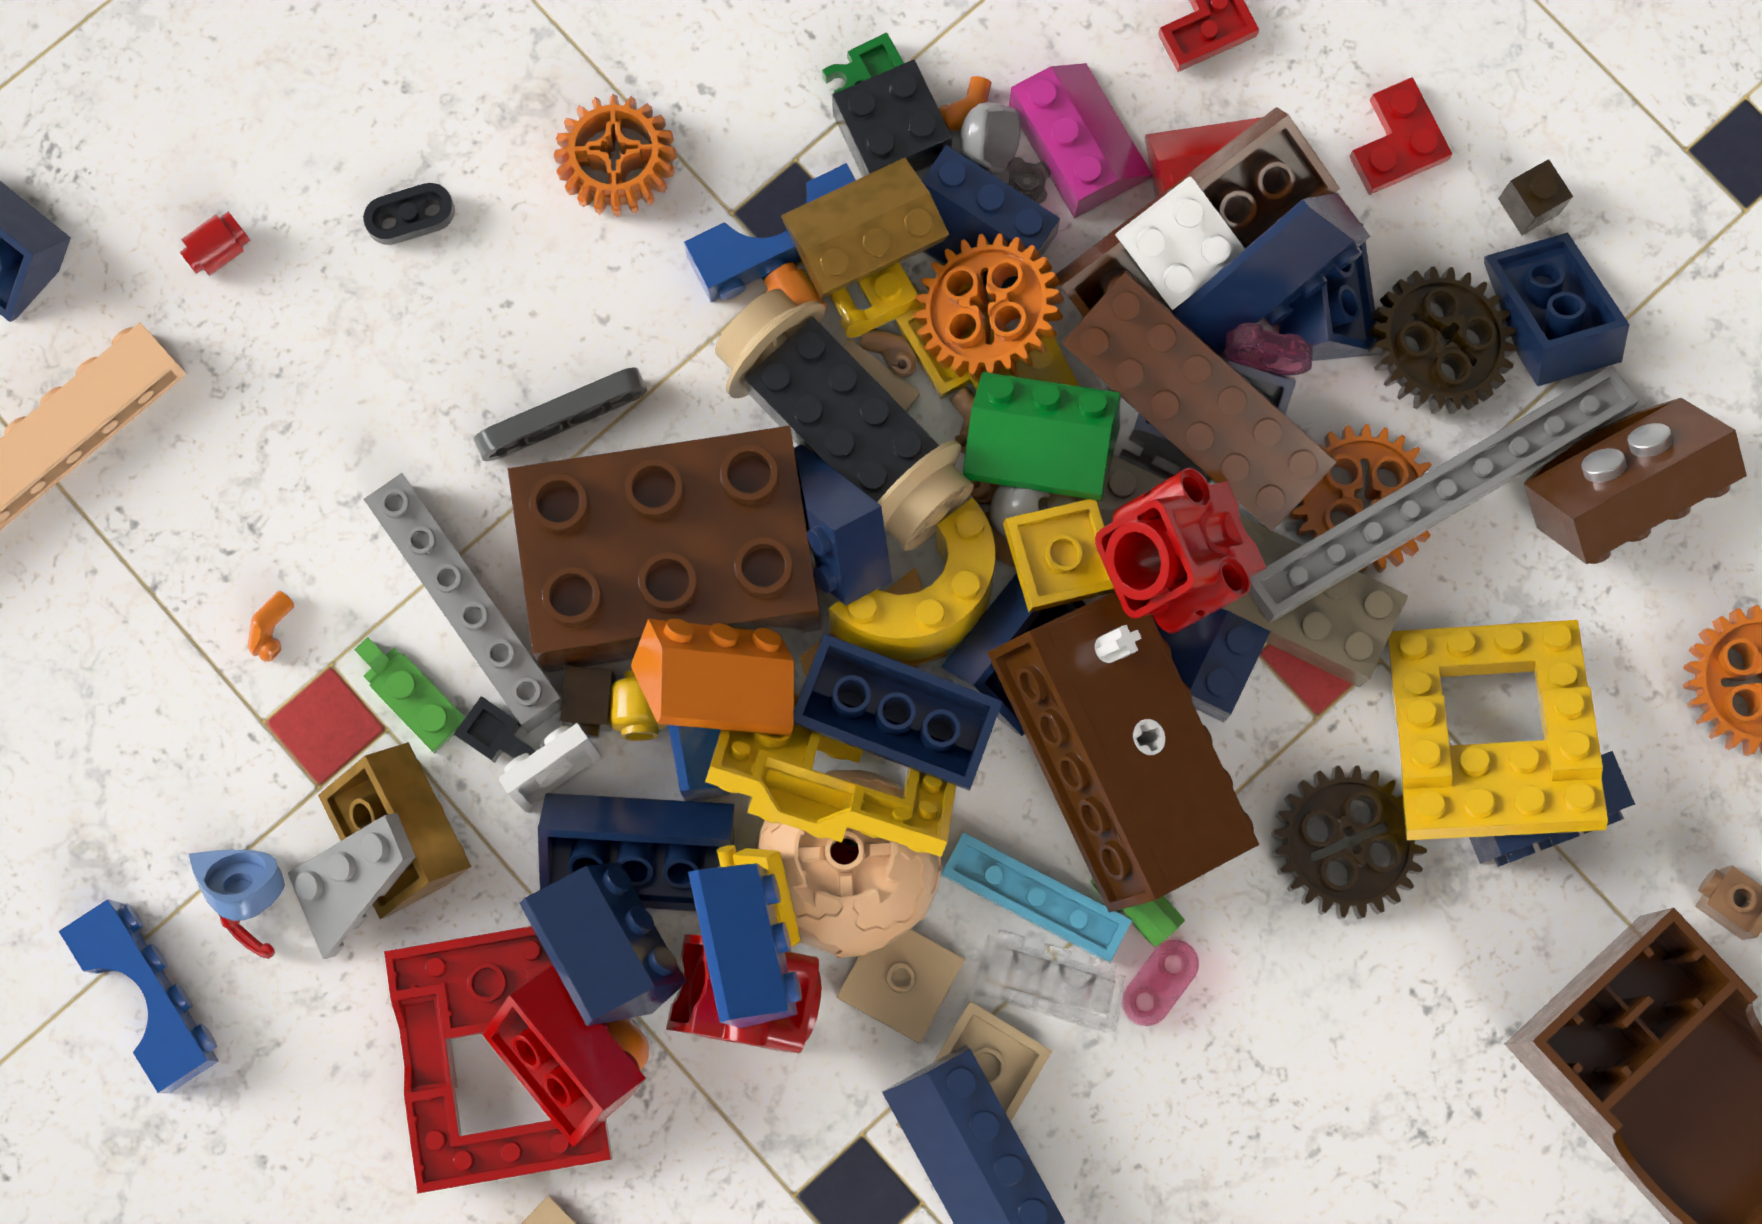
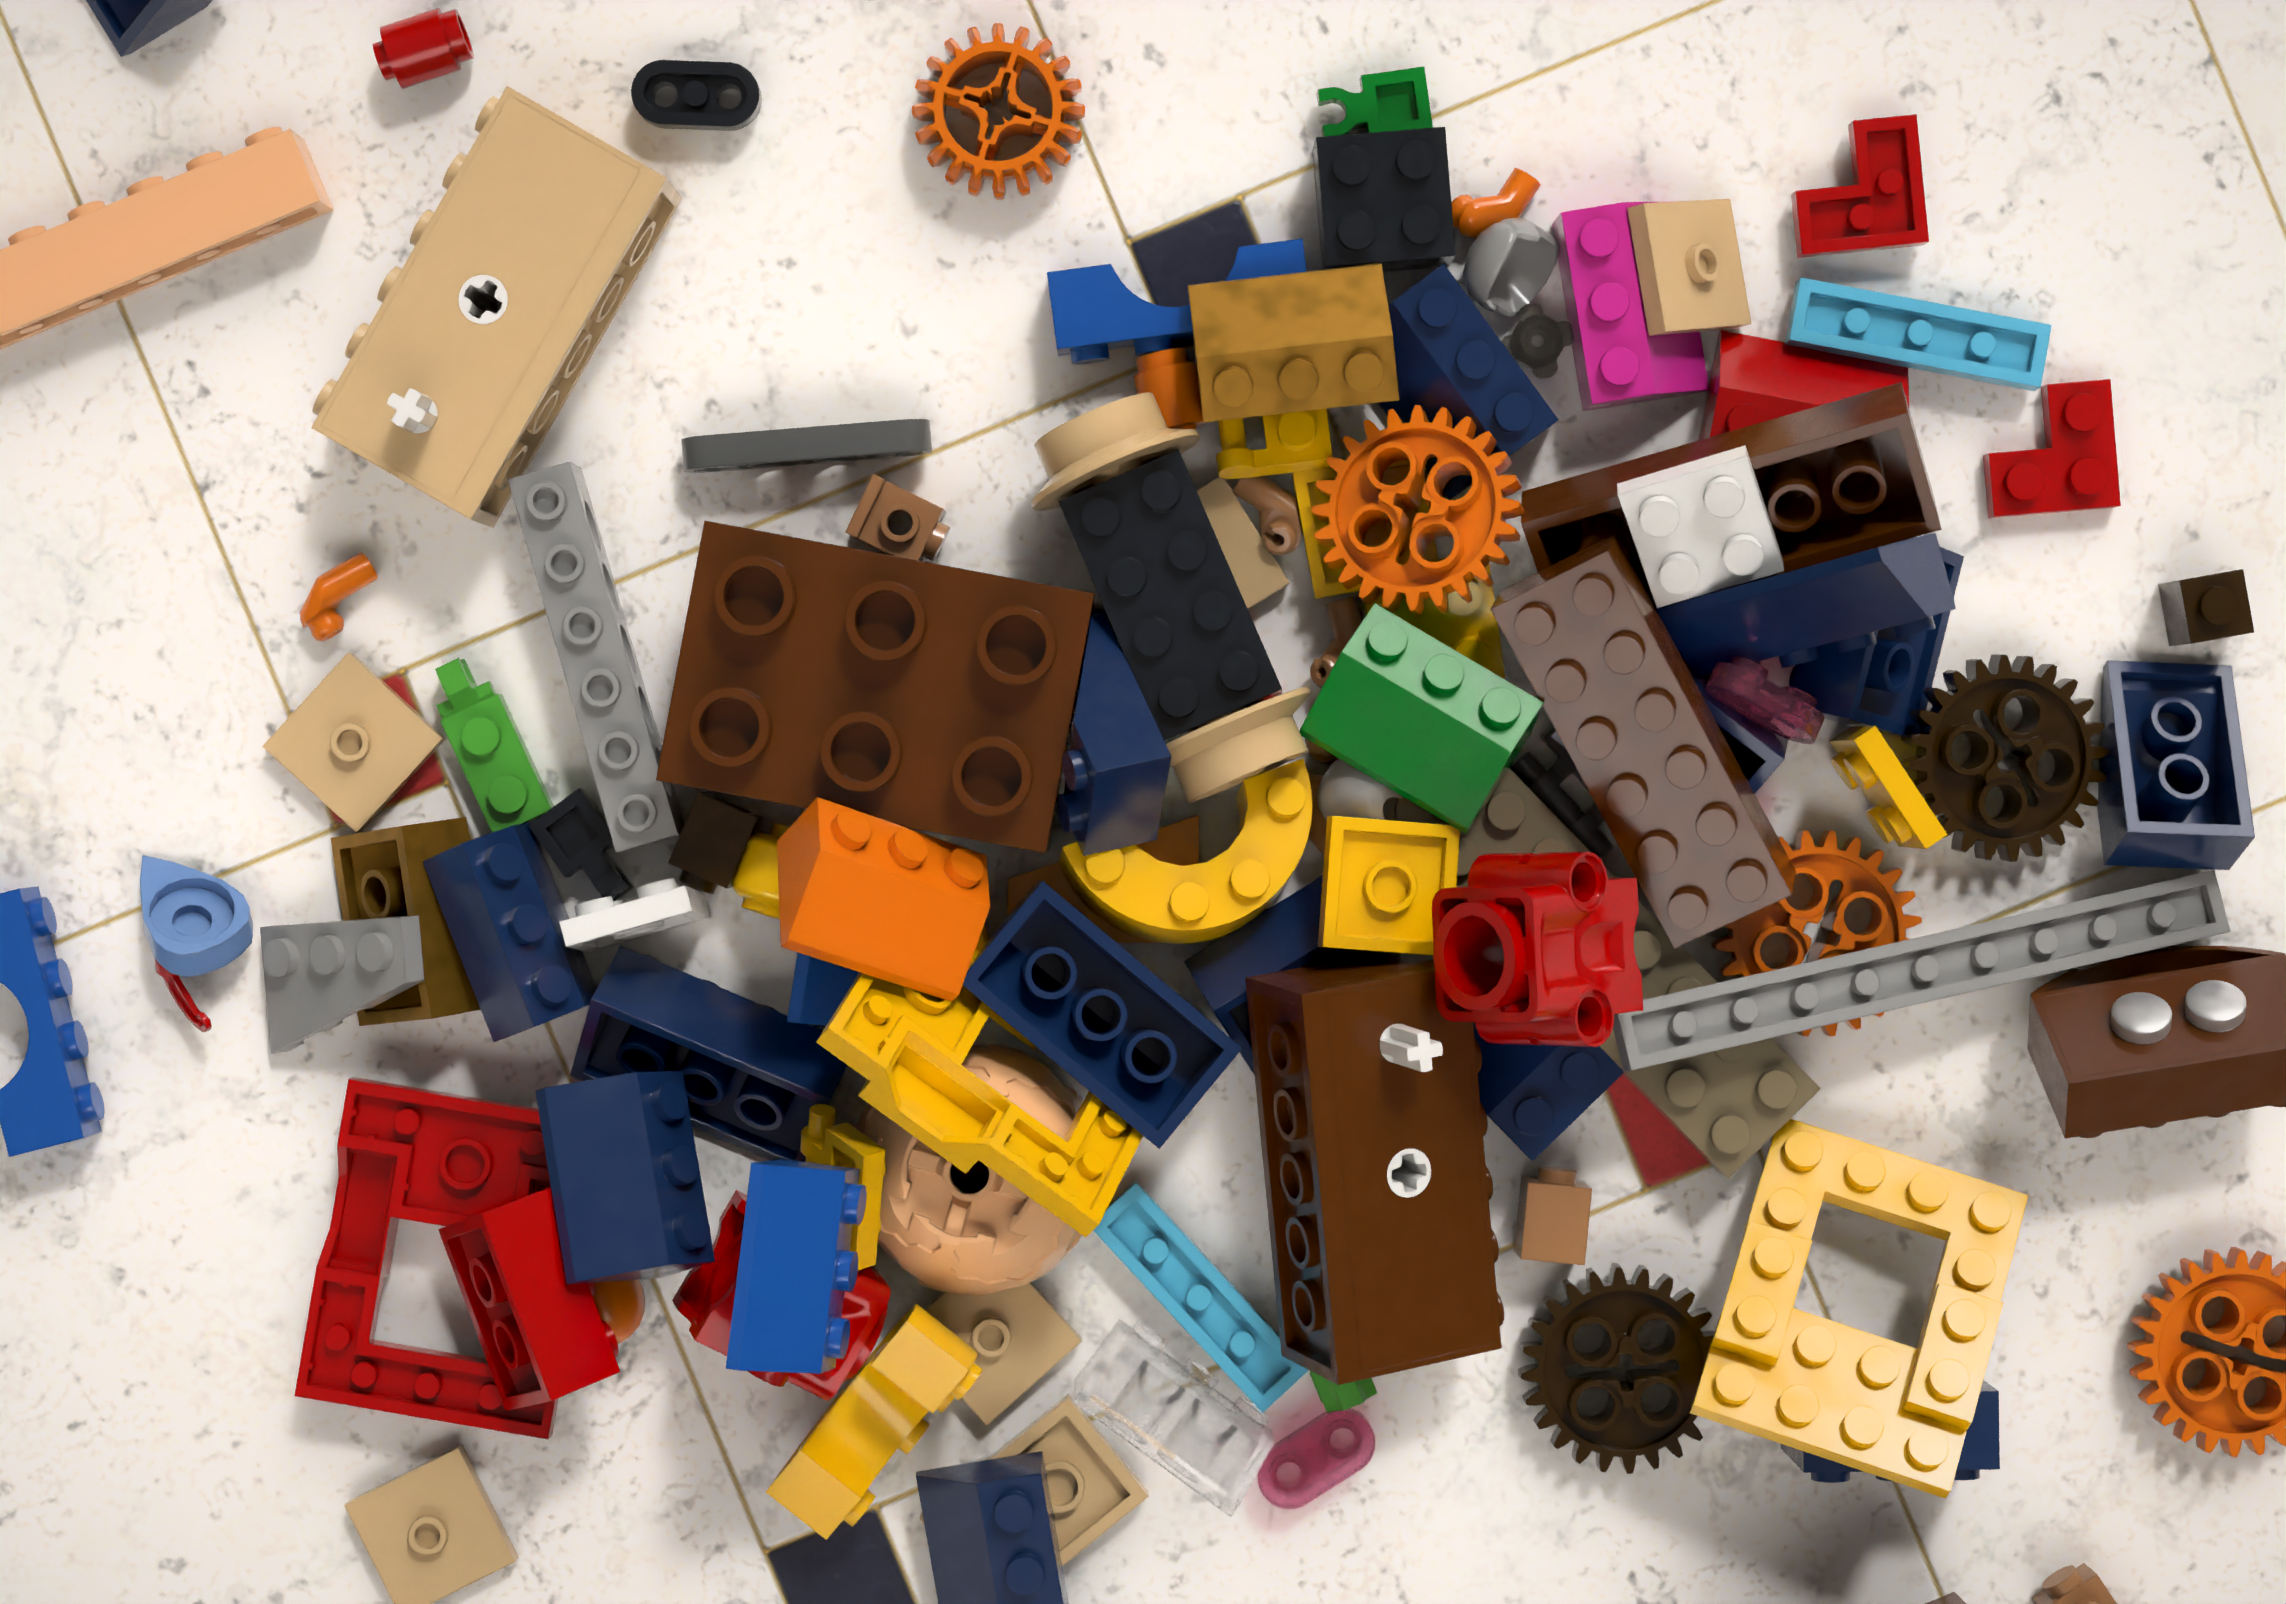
camera: 20 degrees right, 10 degrees up
(313, 722) = (354, 742): none -> tan plate
(318, 390) = (553, 236): none -> tan piece
(463, 805) = (508, 930): none -> dark blue slope
(626, 428) = (872, 518): none -> medium nougat brick
(853, 1015) = (878, 1411): none -> yellow brick
(1108, 96) = (1689, 266): none -> tan plate
(1260, 754) = (1553, 1217): none -> medium nougat brick
(1288, 87) = (1918, 334): none -> medium azure plate
(1372, 381) = (1896, 803): none -> yellow plate

